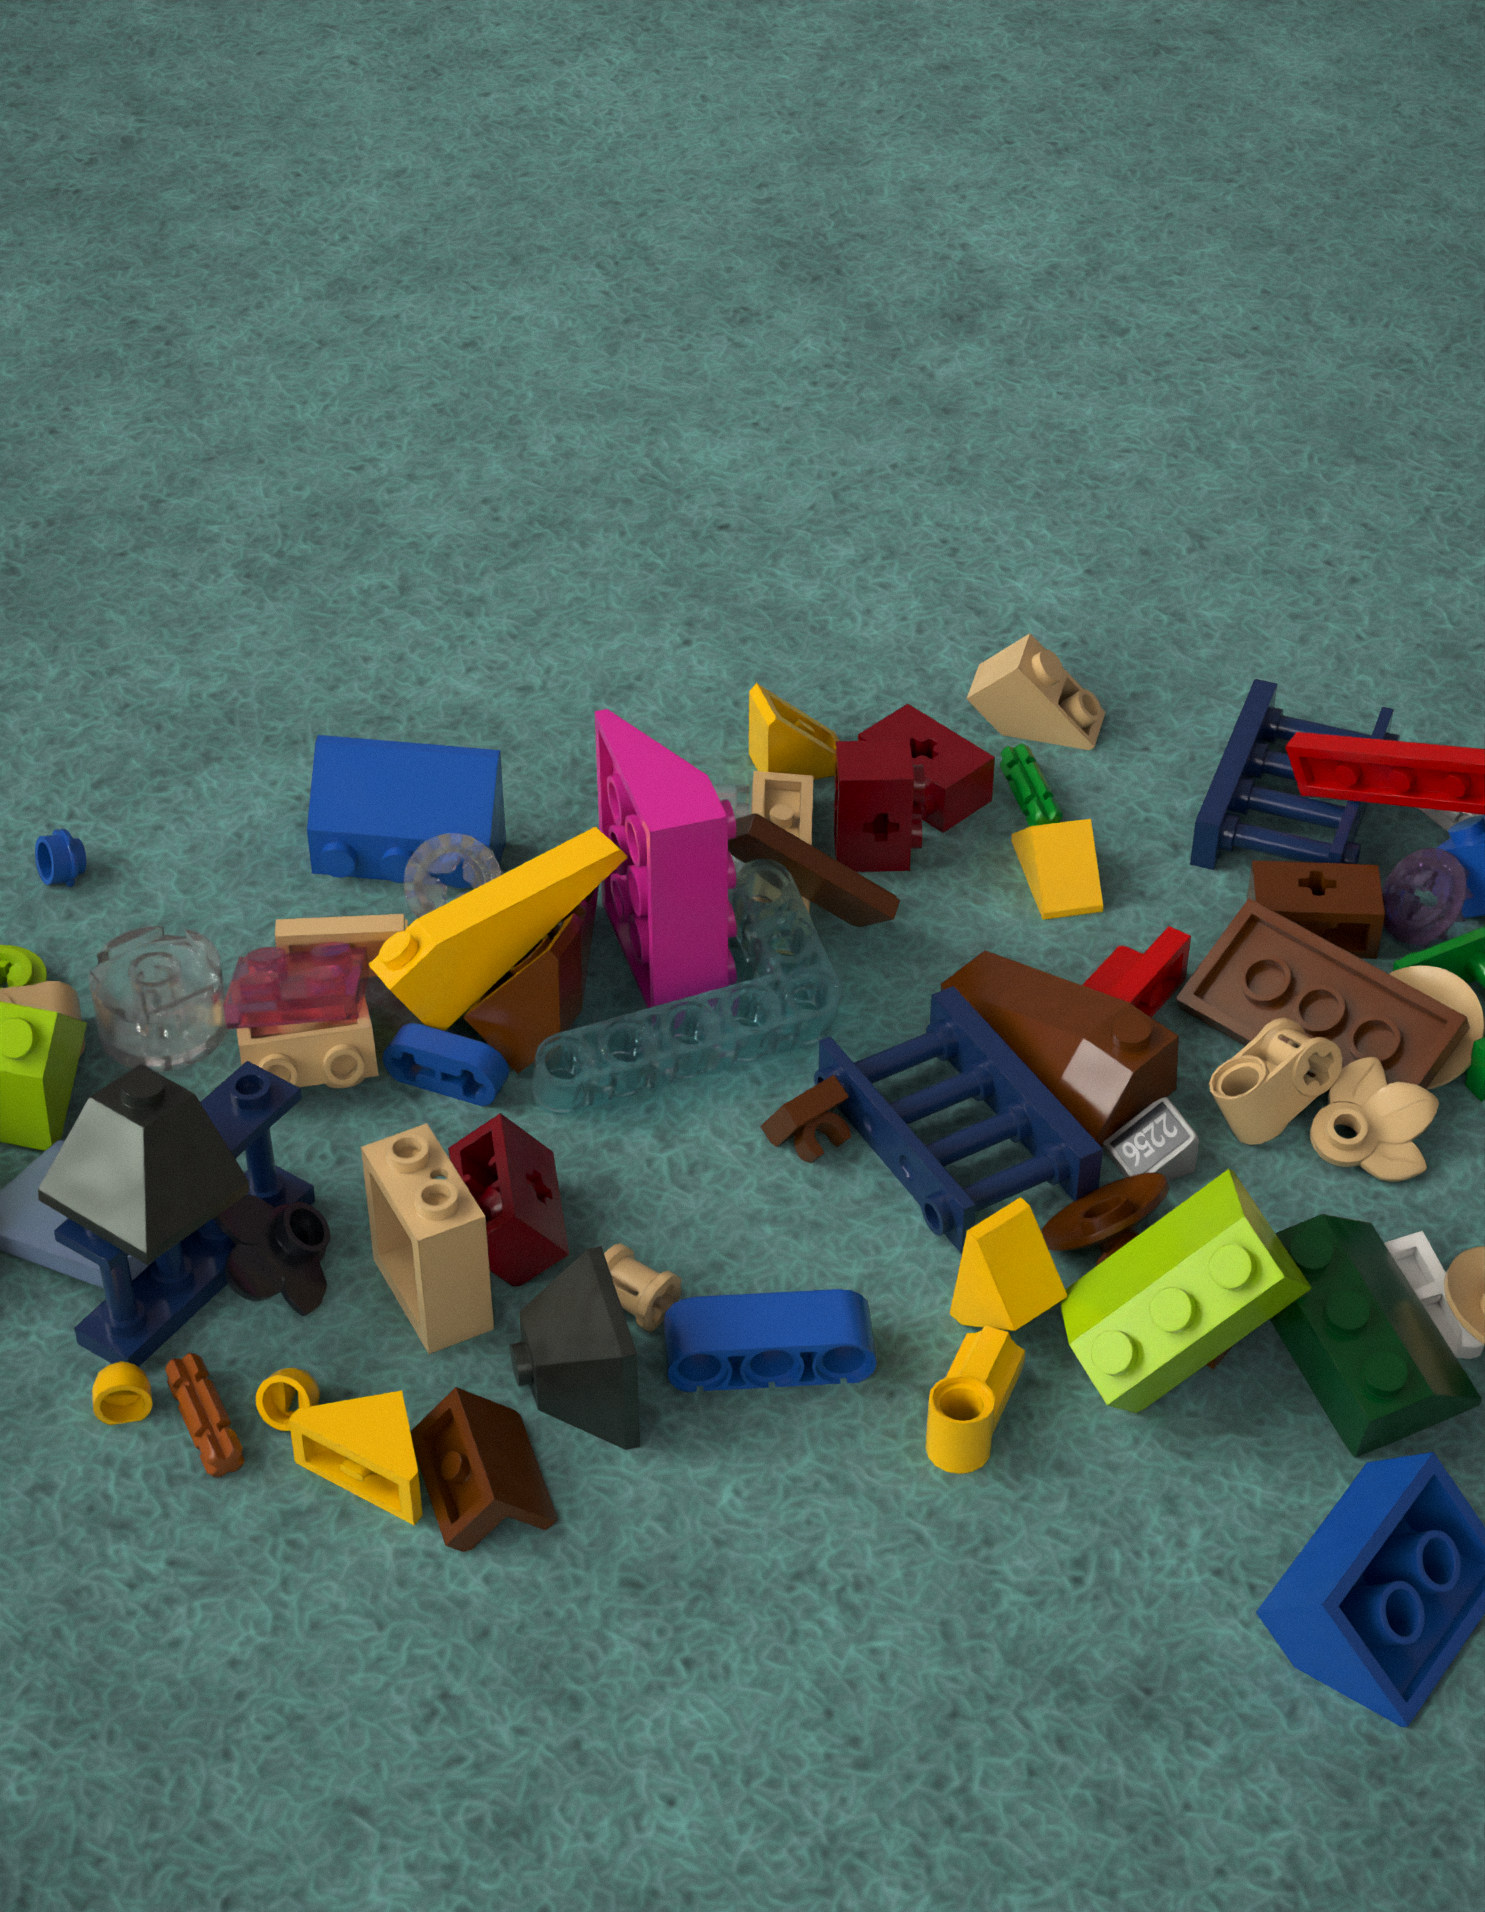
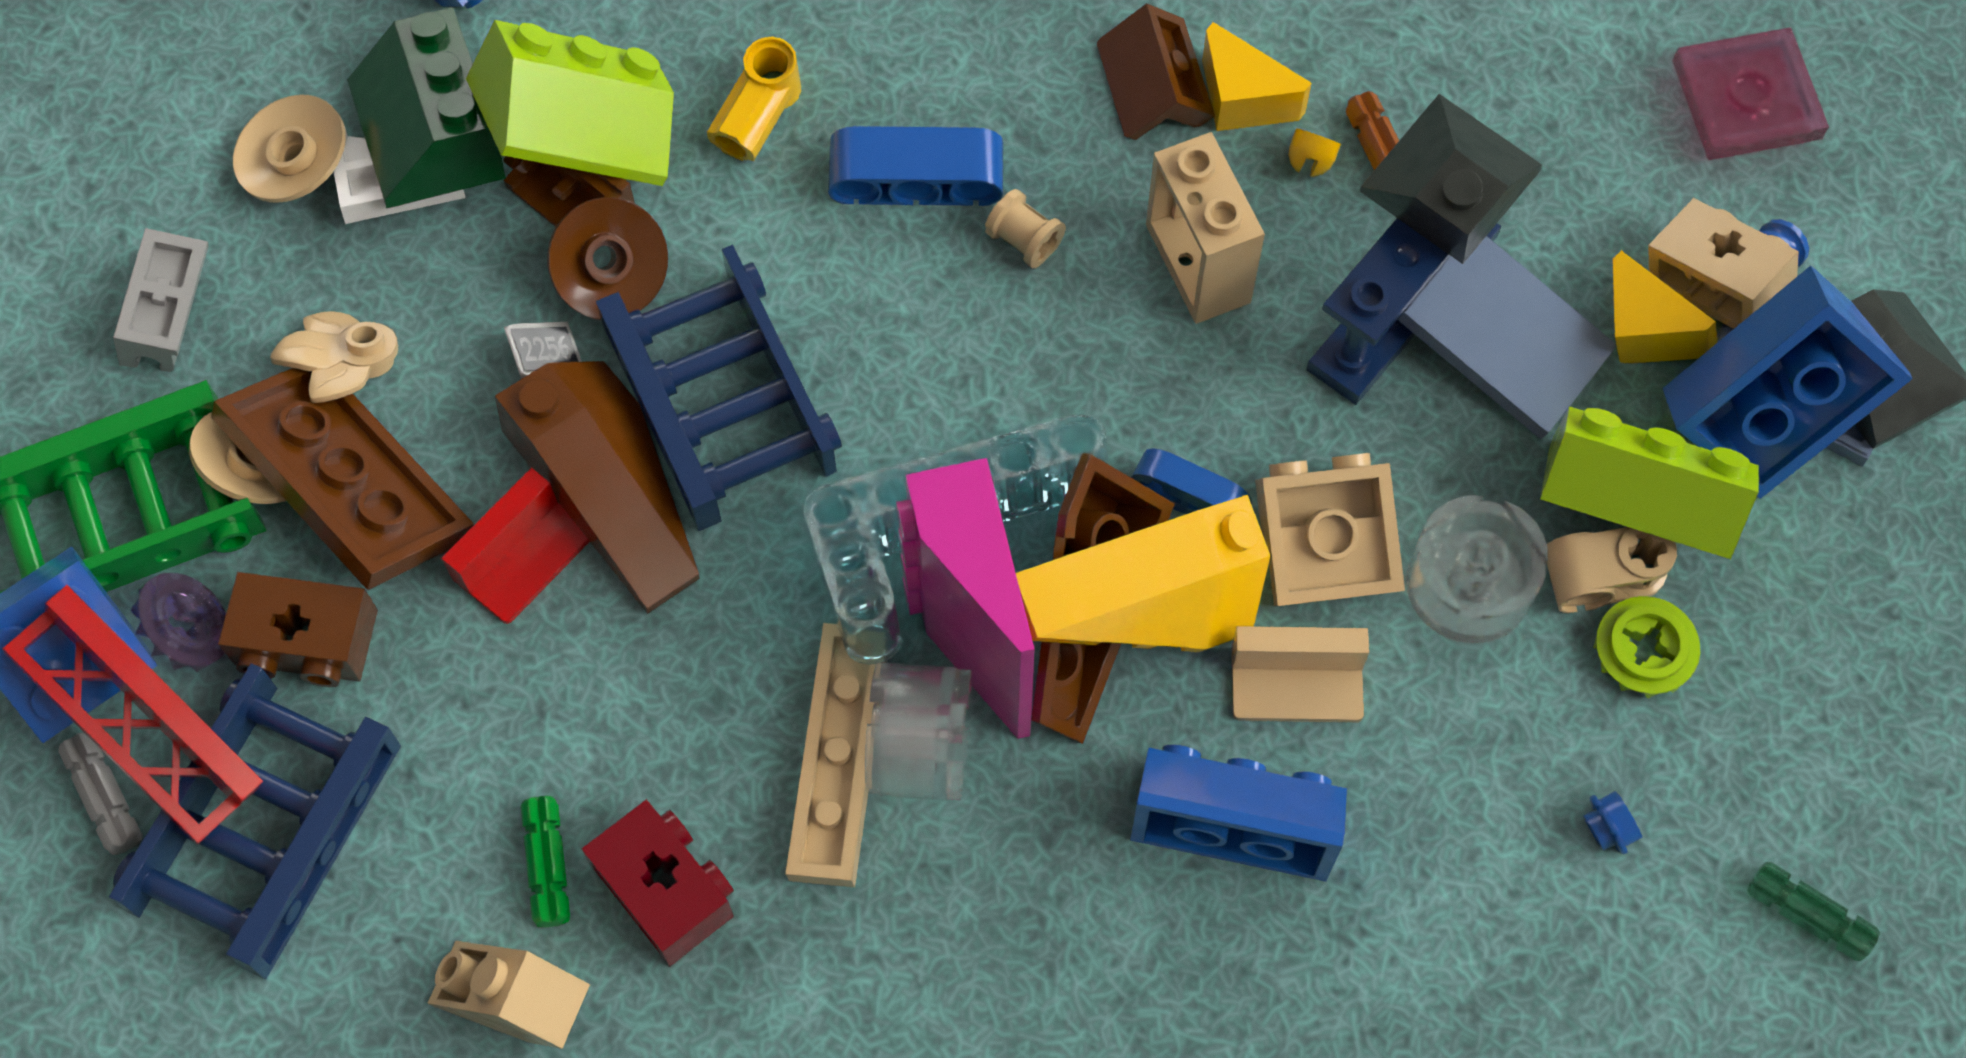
camera: 175 degrees left, 25 degrees up
(276, 1251) = (1320, 272): black plate -> none
(297, 986) = (1340, 567): clear pink plate -> none
(442, 855) = (1186, 720): clear gear -> none
(519, 1195) = (1126, 282): dark red brick -> none
(581, 1353) = (1074, 135): pearl dark grey slope -> none
(787, 738) = (793, 940): yellow slope -> none
(808, 1114) = (856, 400): reddish brown tile -> none
(814, 872) = (819, 646): reddish brown tile -> none
(875, 805) = (726, 772): dark red brick -> none
(1005, 1272) = (714, 182): yellow slope -> none
(1061, 867) = (543, 737): yellow slope -> none
(1269, 1082) = (403, 386): tan piece -> none

